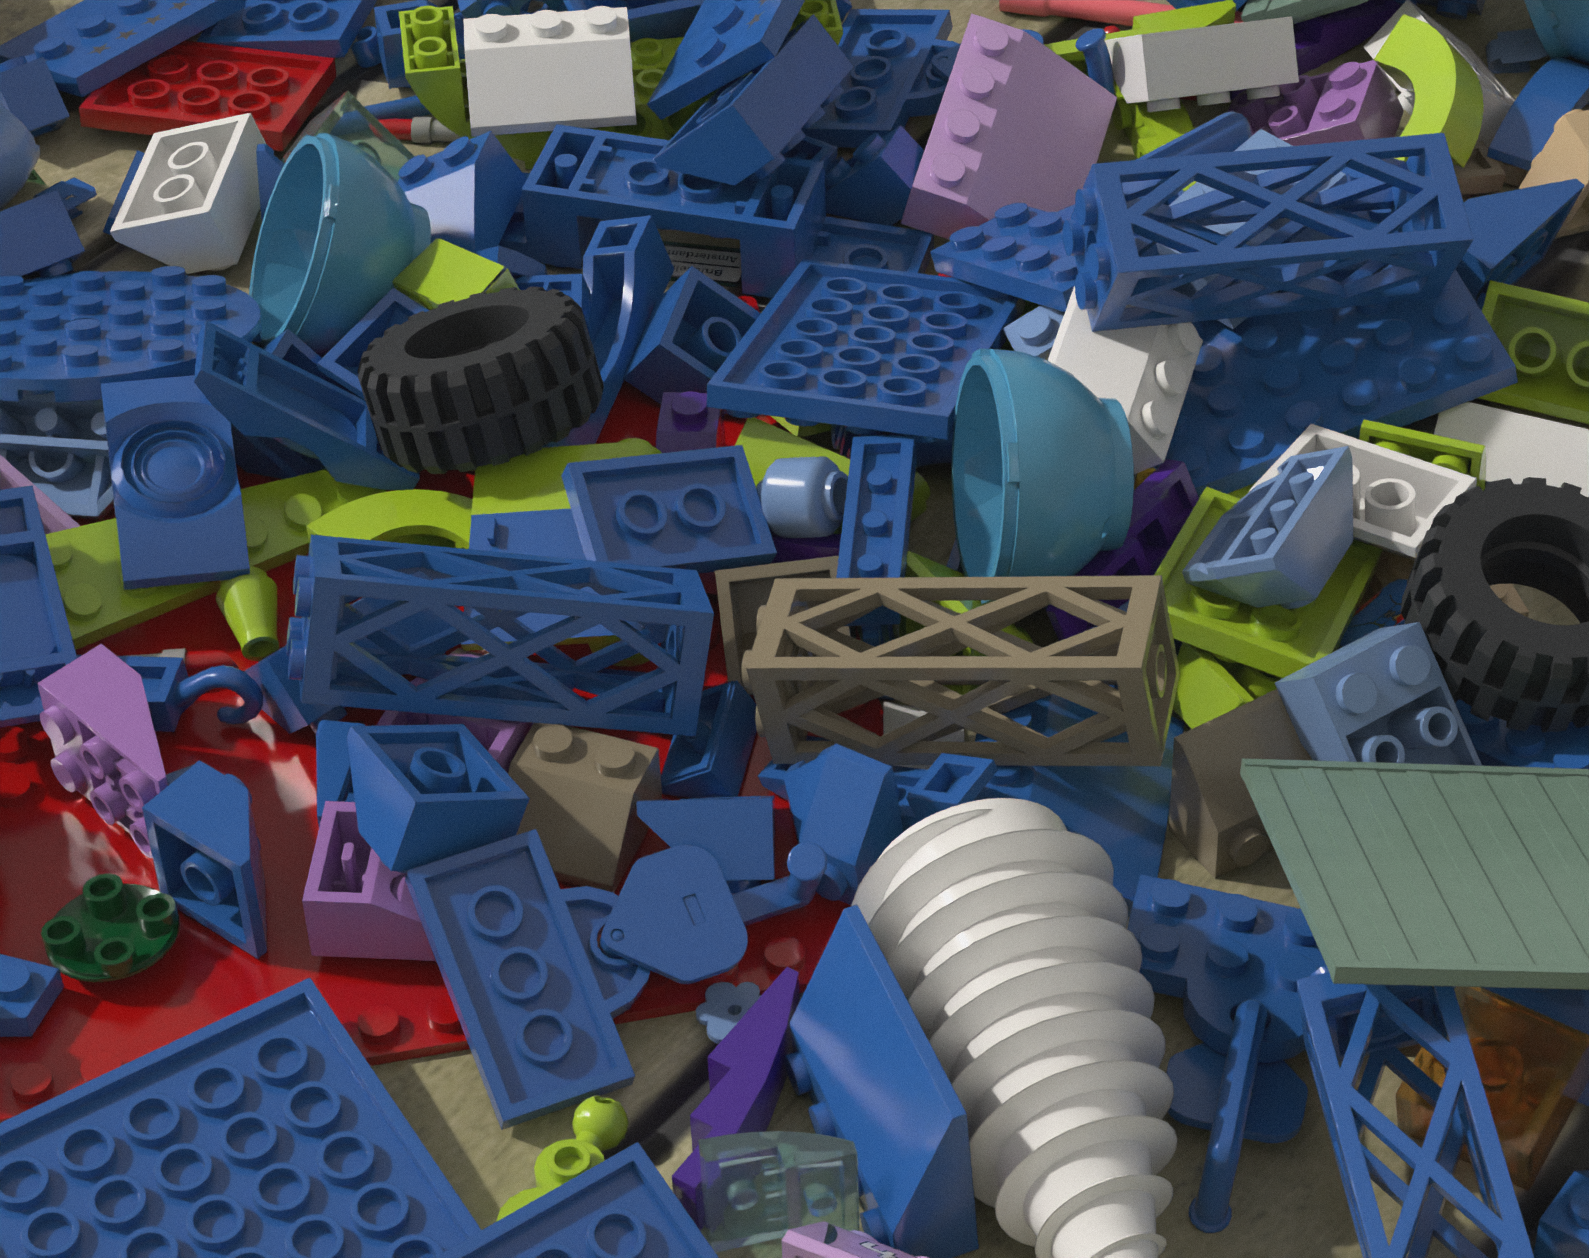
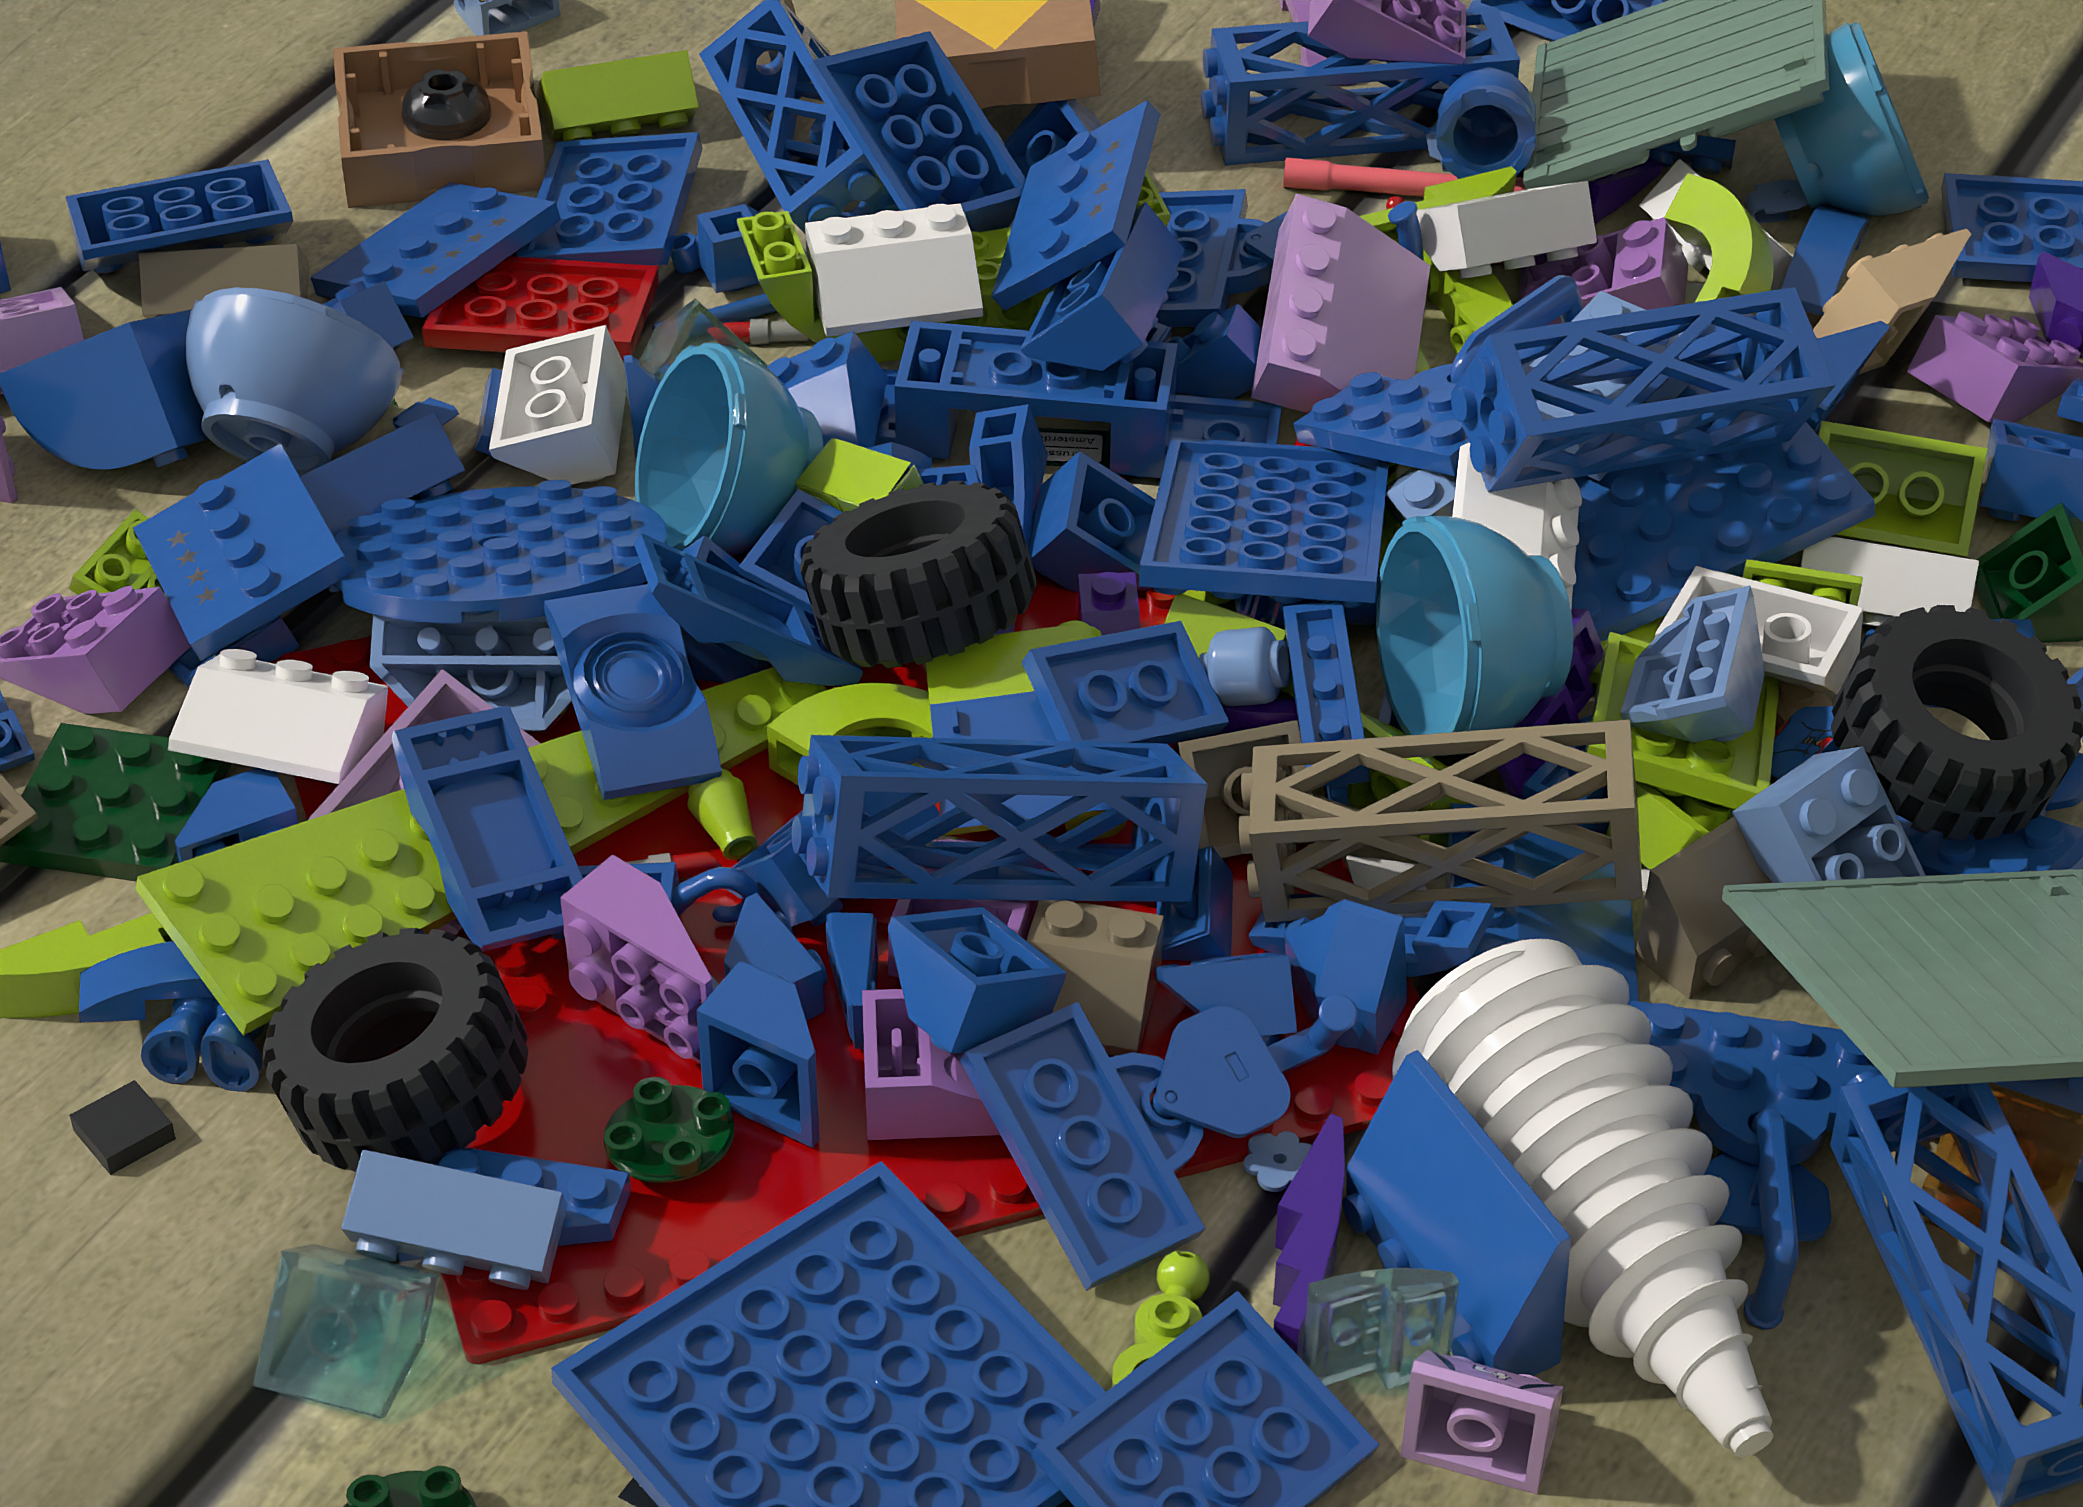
camera: 10 degrees left, 0 degrees up
(255, 753) = (769, 944): none -> blue slope

